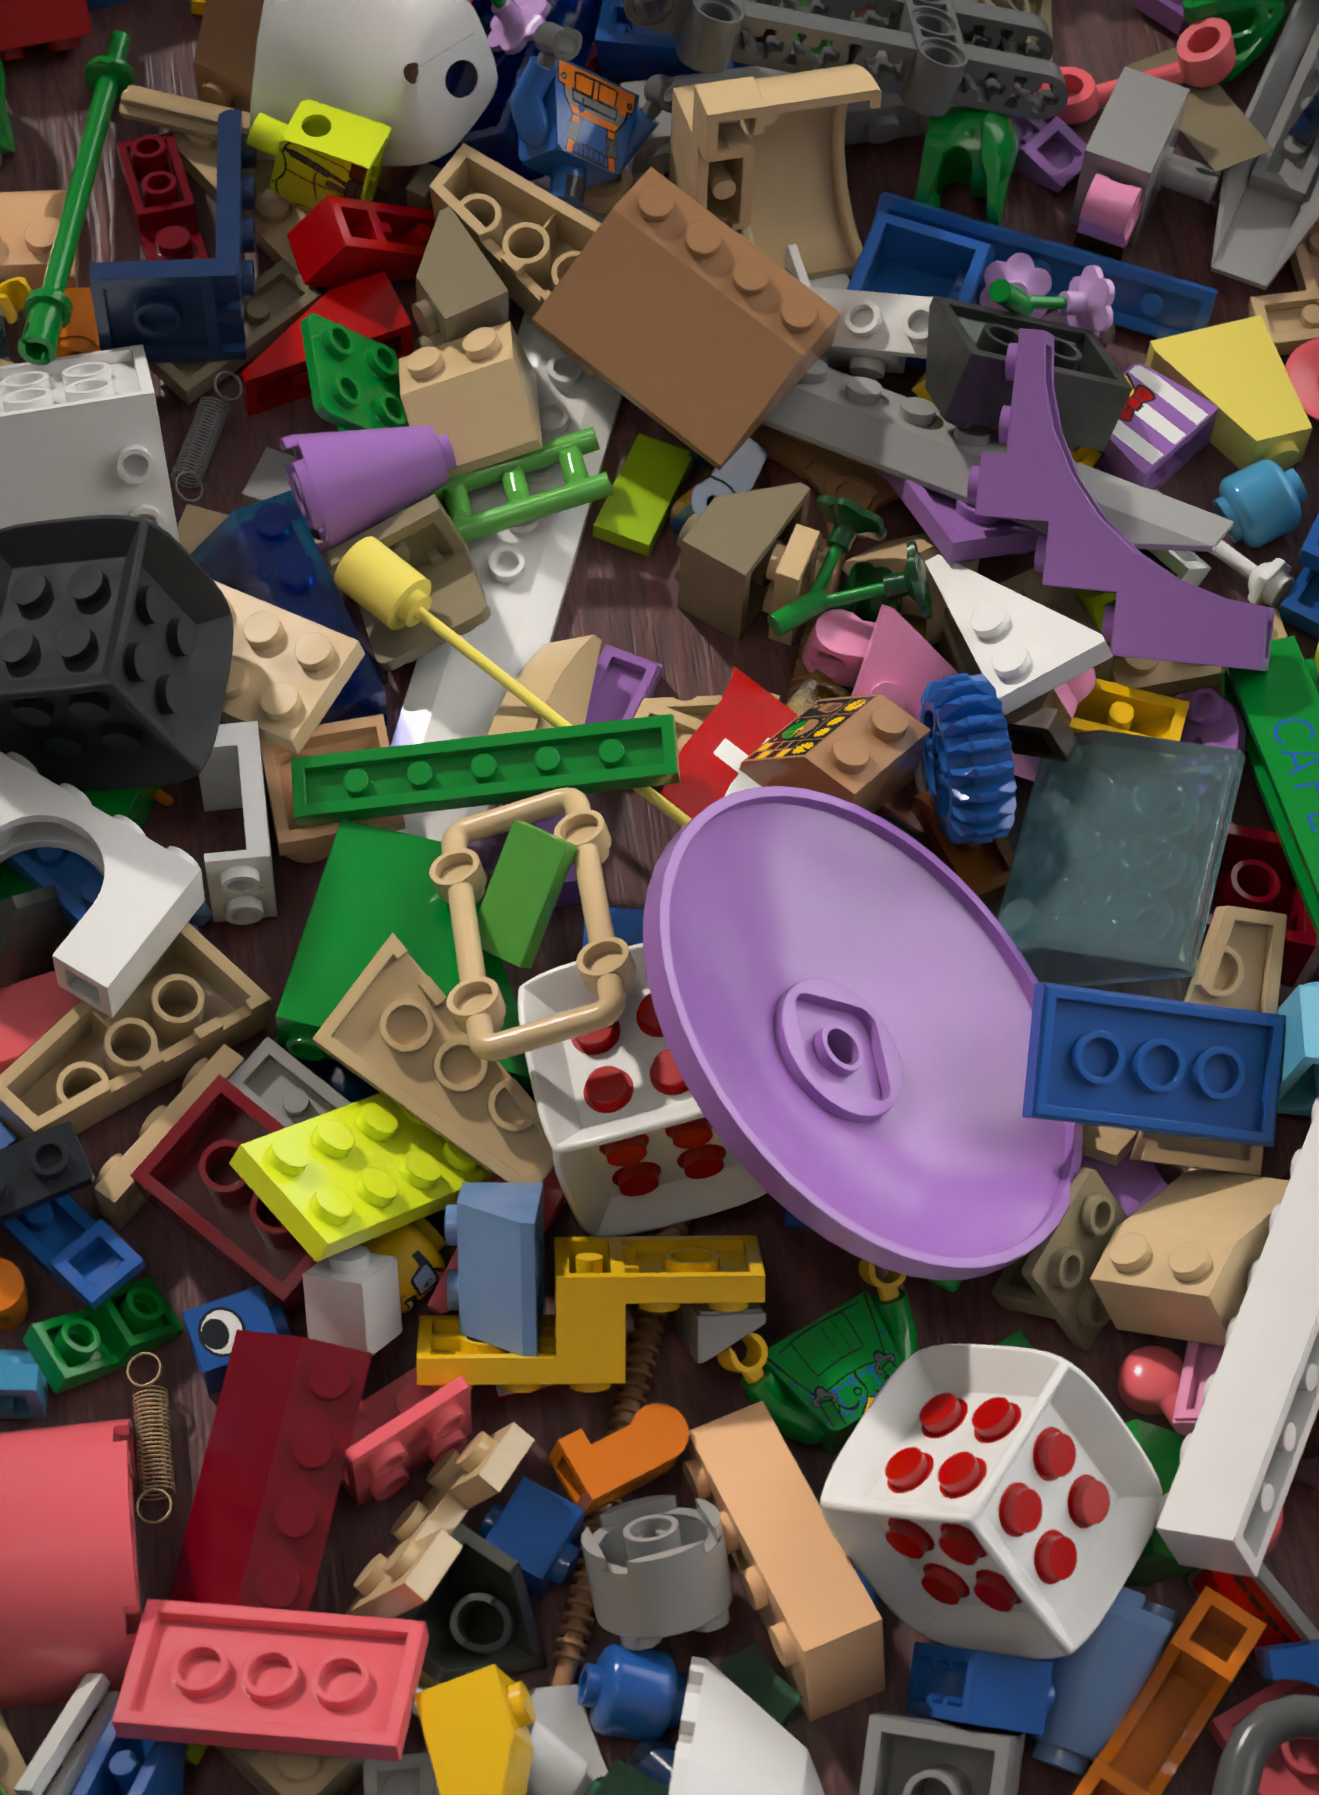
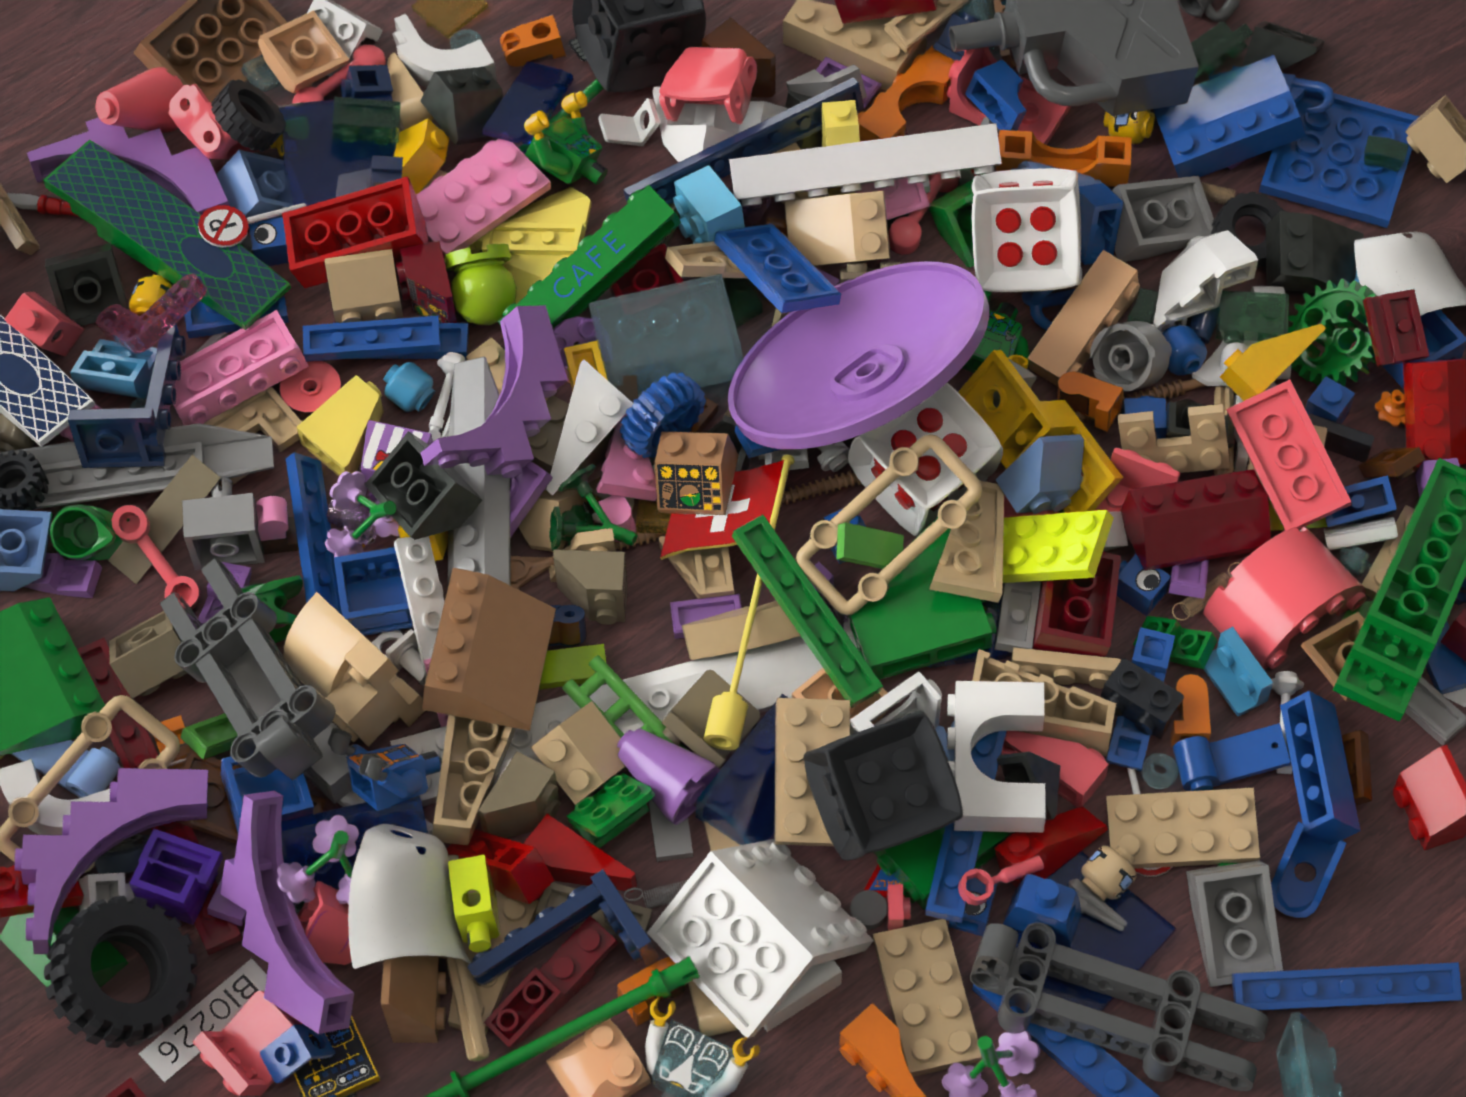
camera: 115 degrees left, 0 degrees up
(35, 1715) = (1355, 560): none -> clear light blue plate
(181, 1406) = (1189, 579): none -> medium lavender tile

